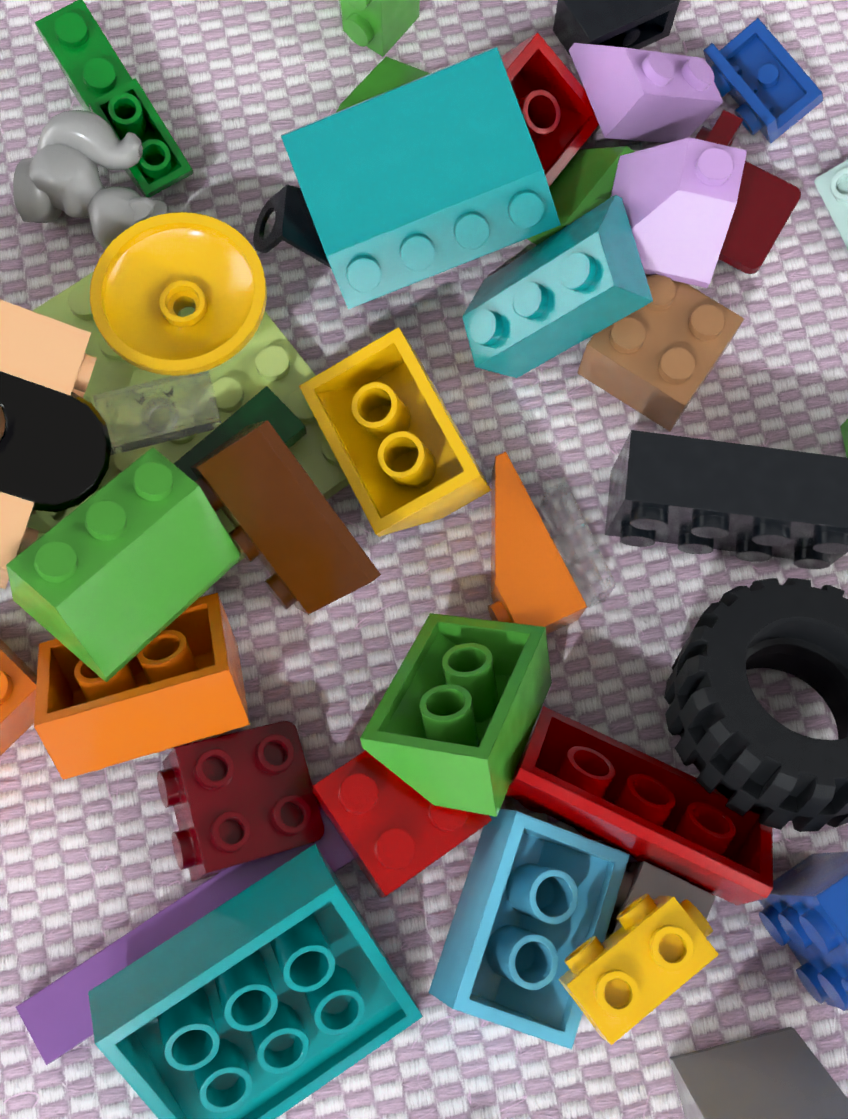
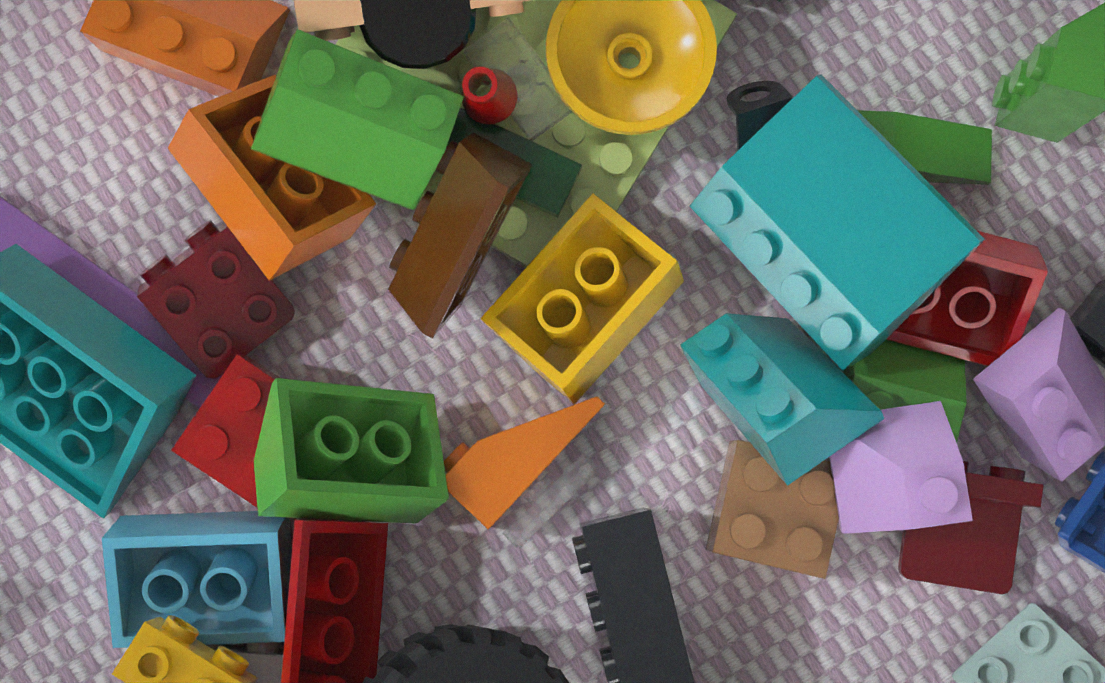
camera: 70 degrees right, 10 degrees up
(170, 439) = (497, 103): none -> red cone

